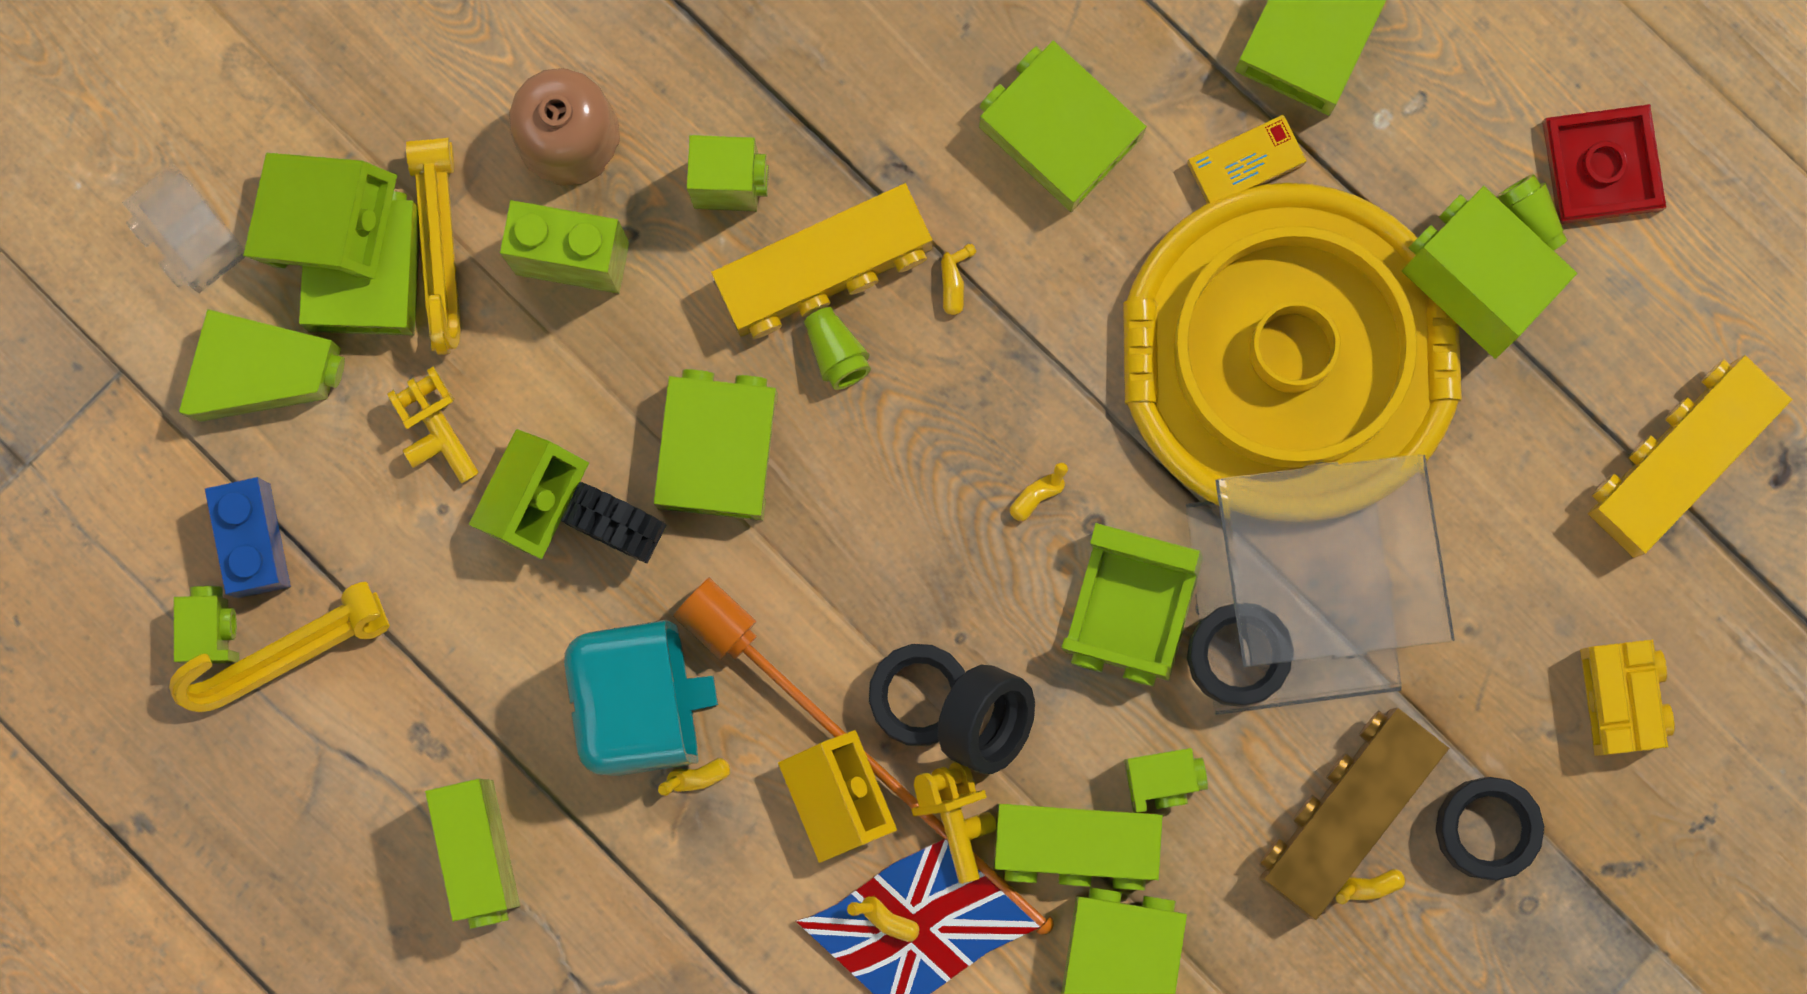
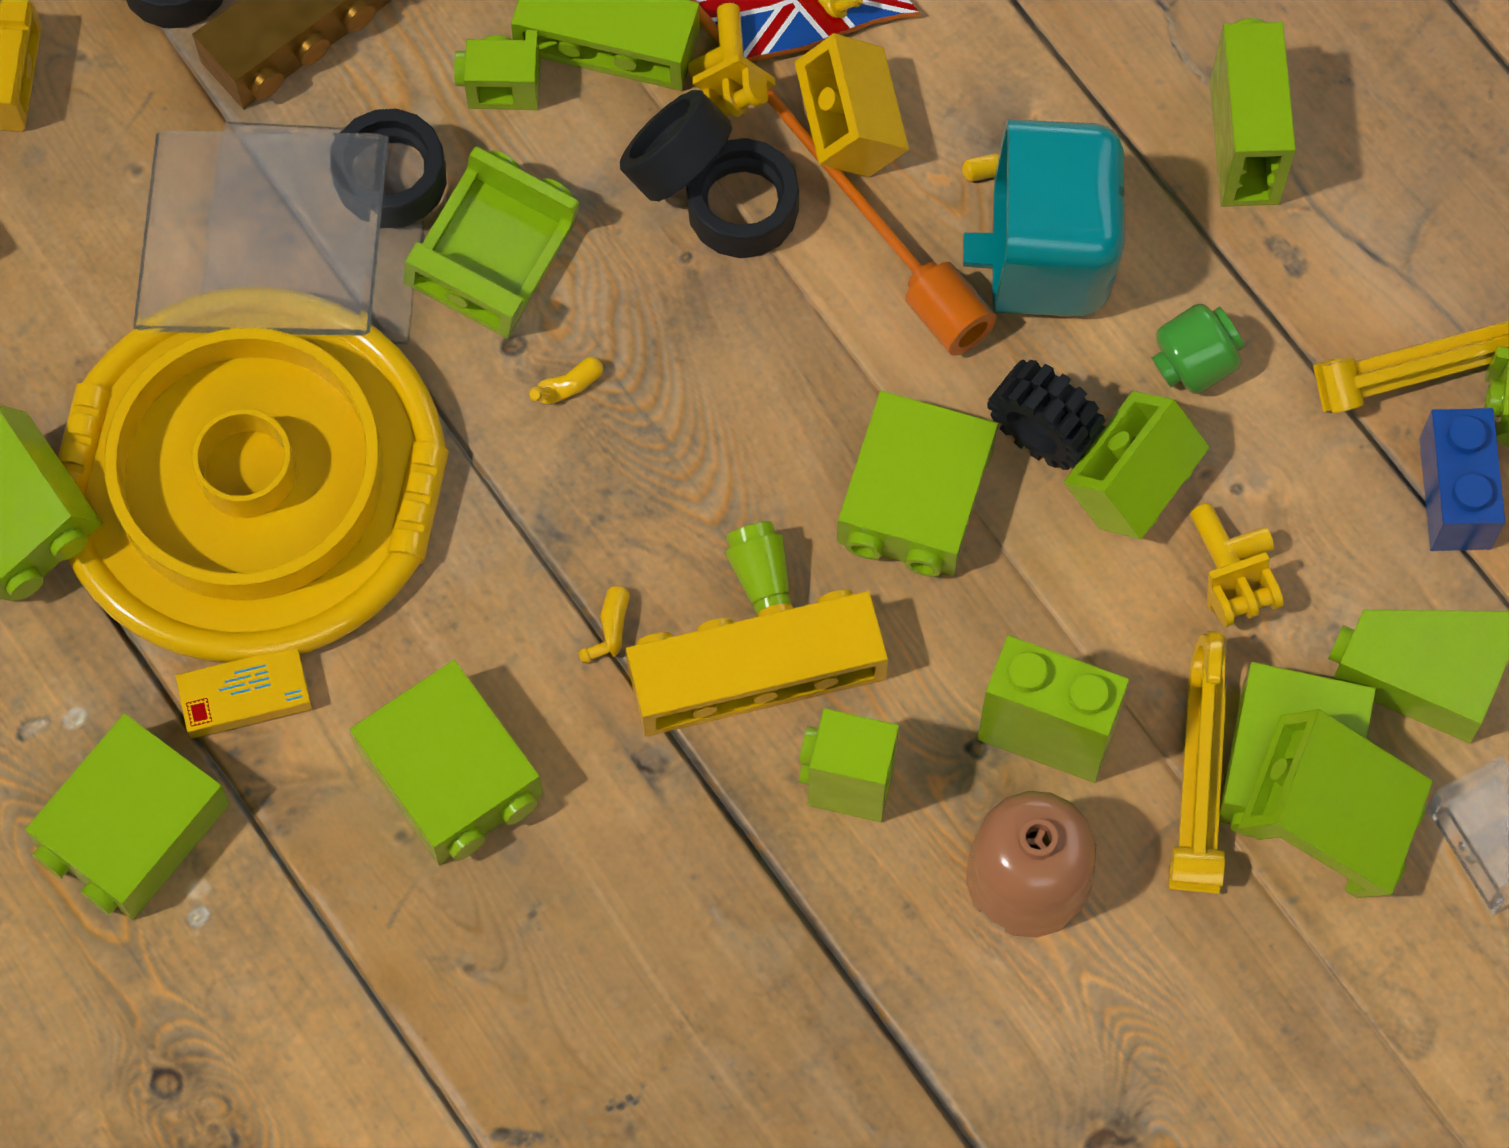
camera: 170 degrees left, 15 degrees down
(491, 621) = (1198, 348): none -> bright green head

